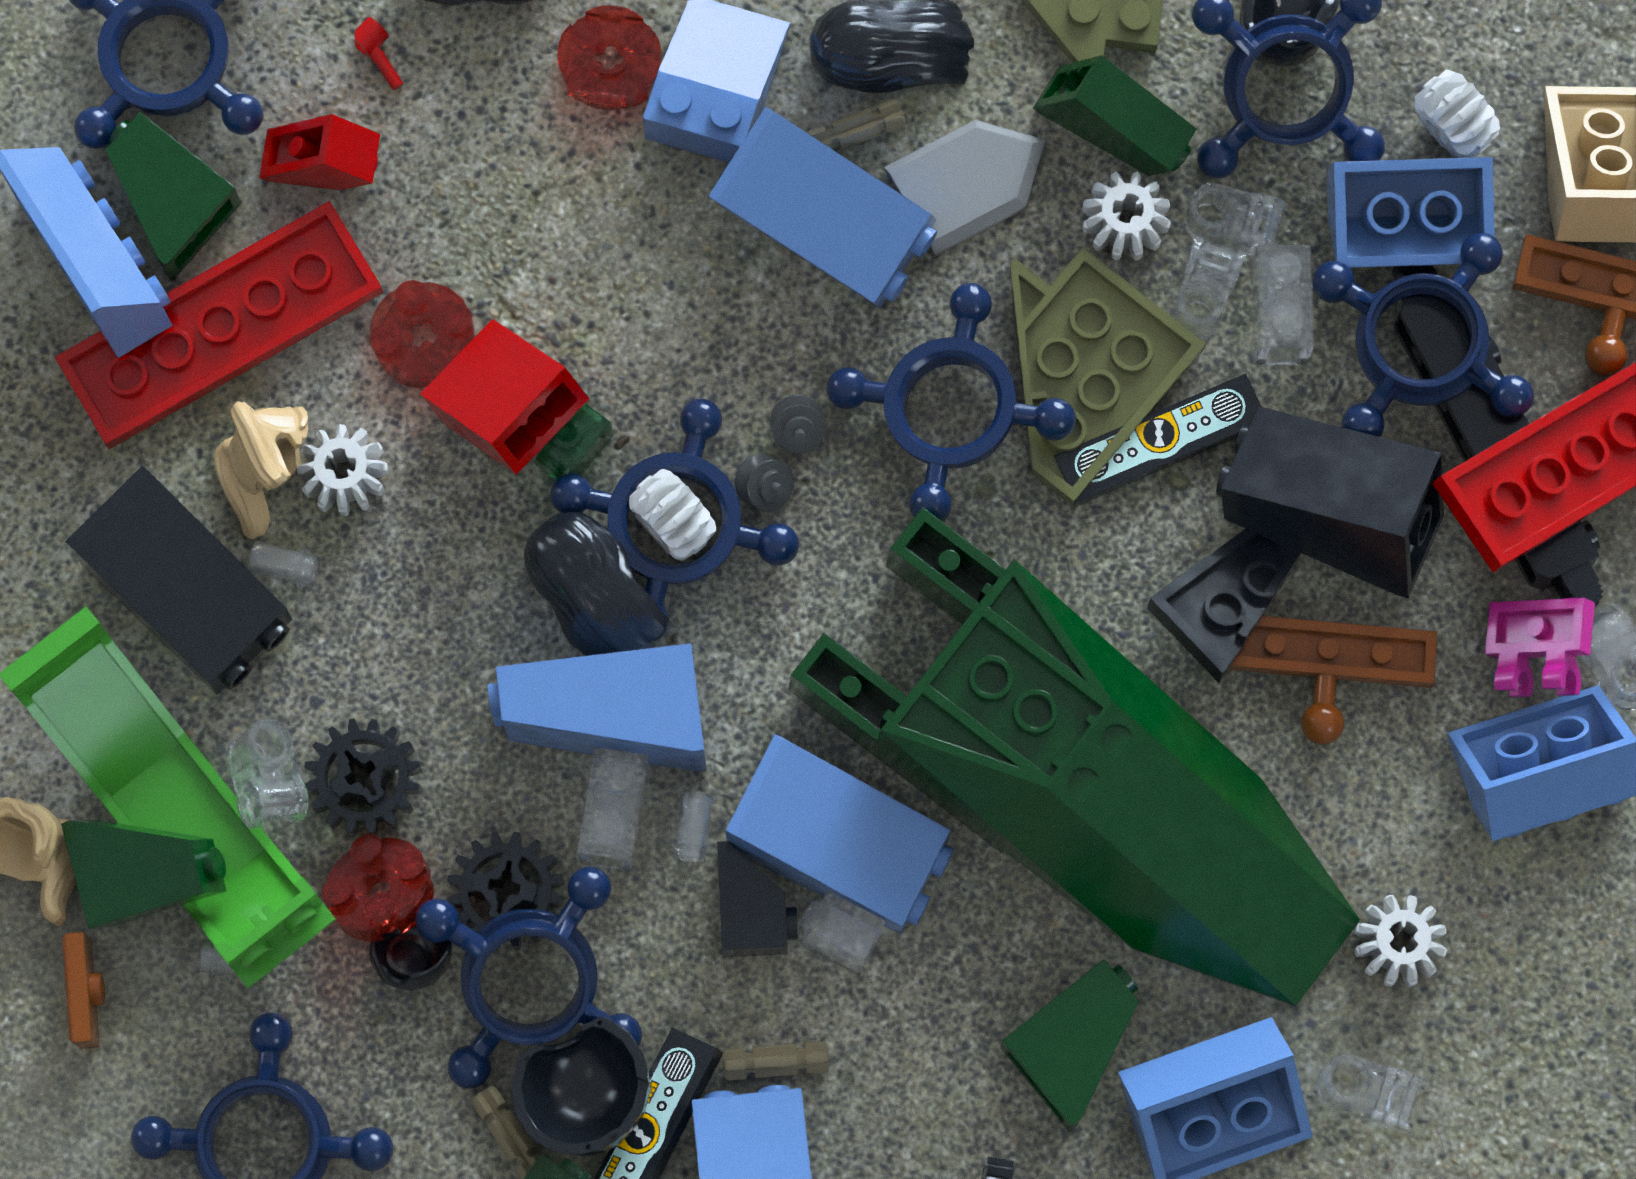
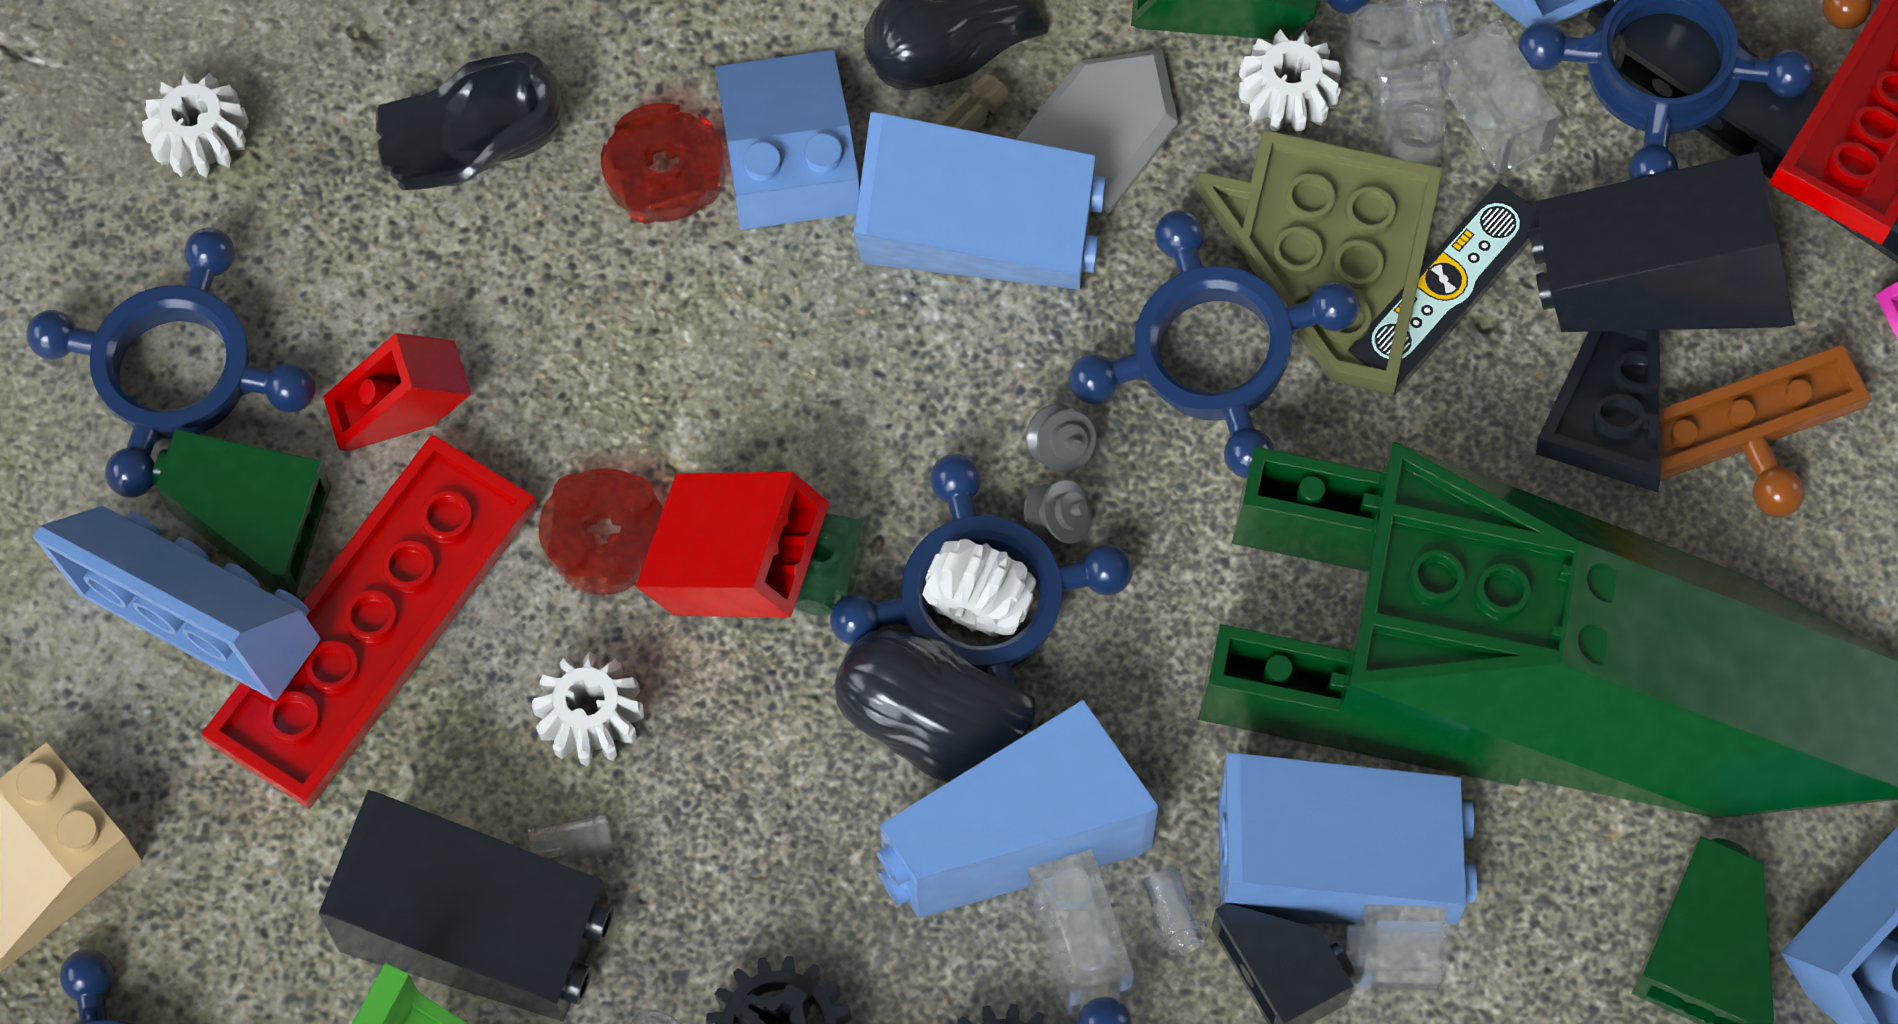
camera: 25 degrees left, 10 degrees down
(259, 456) = (481, 727): tan hair -> none
(368, 39) = (390, 261): red hand -> none

